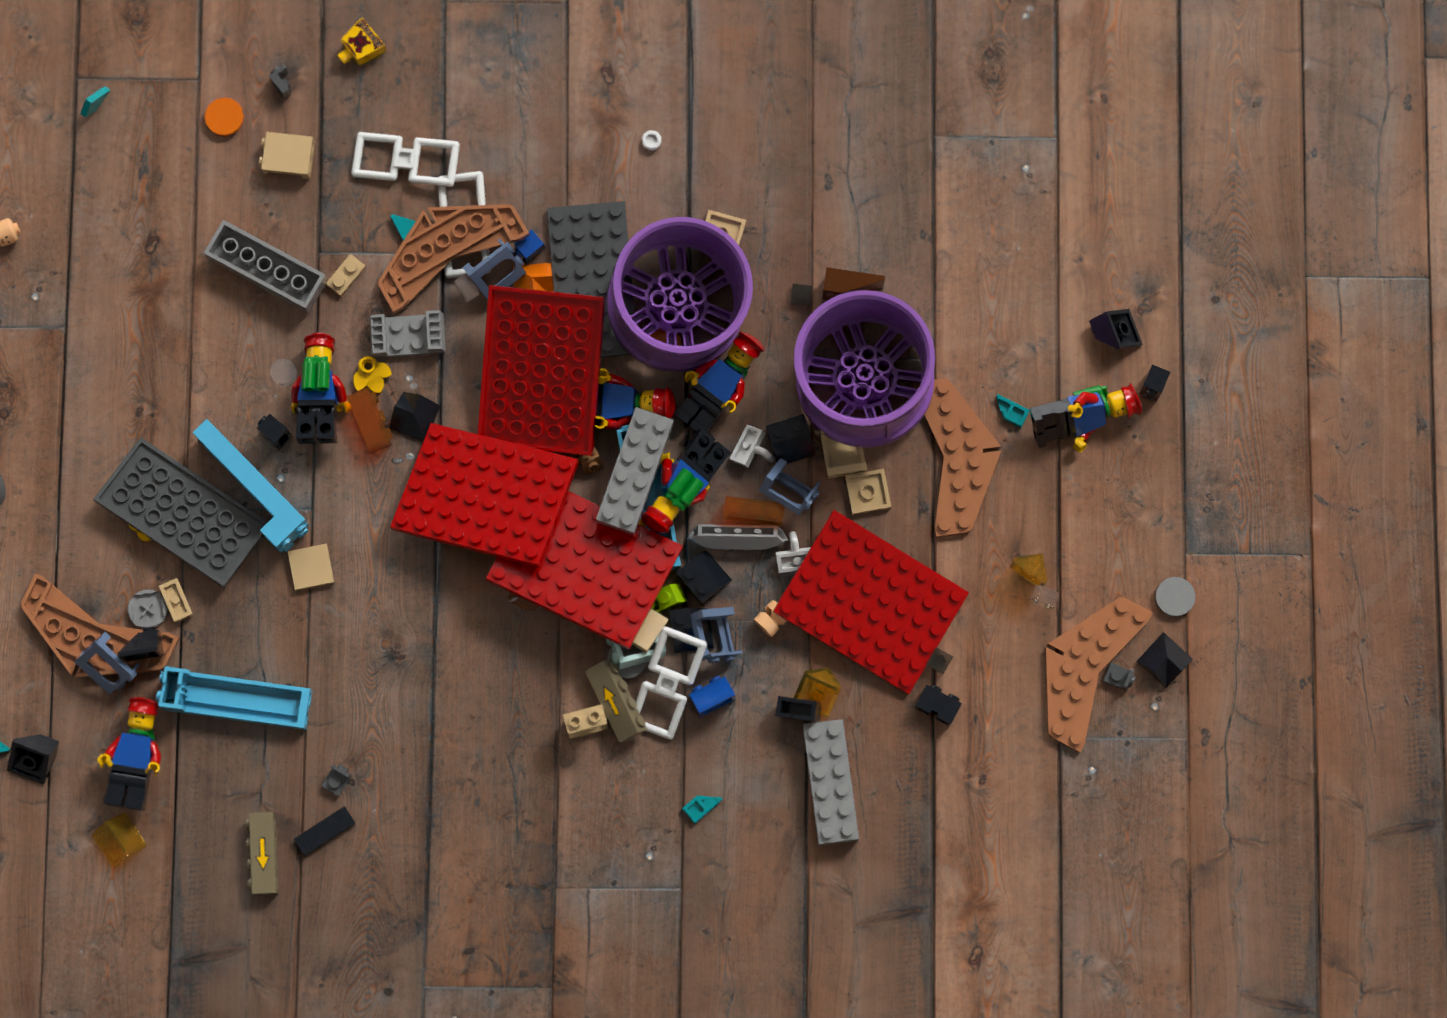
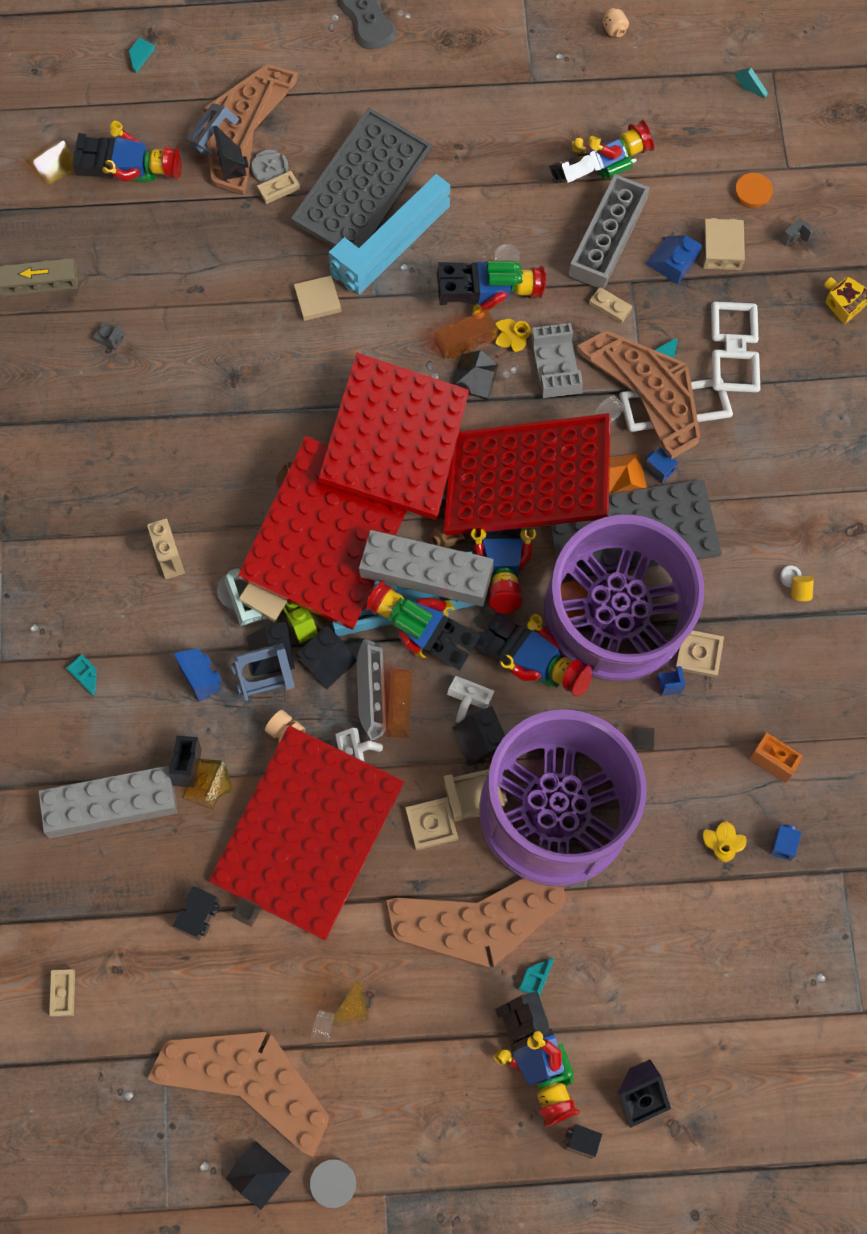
camera: 85 degrees right, 10 degrees down
(33, 757) = (127, 86): black slope -> none
(177, 264) = (607, 158): none -> piece
(233, 698) = (184, 238): medium azure brick -> none
(273, 431) = (445, 247): black brick -> none
(297, 205) = (675, 257): none -> blue slope
(324, 831) = (59, 329): black tile -> none
(503, 252) = (650, 434): sand blue panel -> none
(616, 700) = (190, 579): dark tan brick -> none
(667, 131) = (802, 588): none -> yellow brick
(669, 679) = (209, 625): white bar -> none
(753, 259) = (671, 682): none -> blue panel
(777, 474) = (443, 725): sand blue panel -> none
(827, 177) = (776, 757): none -> orange slope
(843, 281) = (658, 775): reddish brown slope -> none
(899, 234) = (725, 838): none -> yellow plate
(906, 180) = (785, 842): none -> blue brick
(1001, 826) = (62, 993): none -> tan plate
(1119, 676) = (236, 1120): dark grey bracket -> none

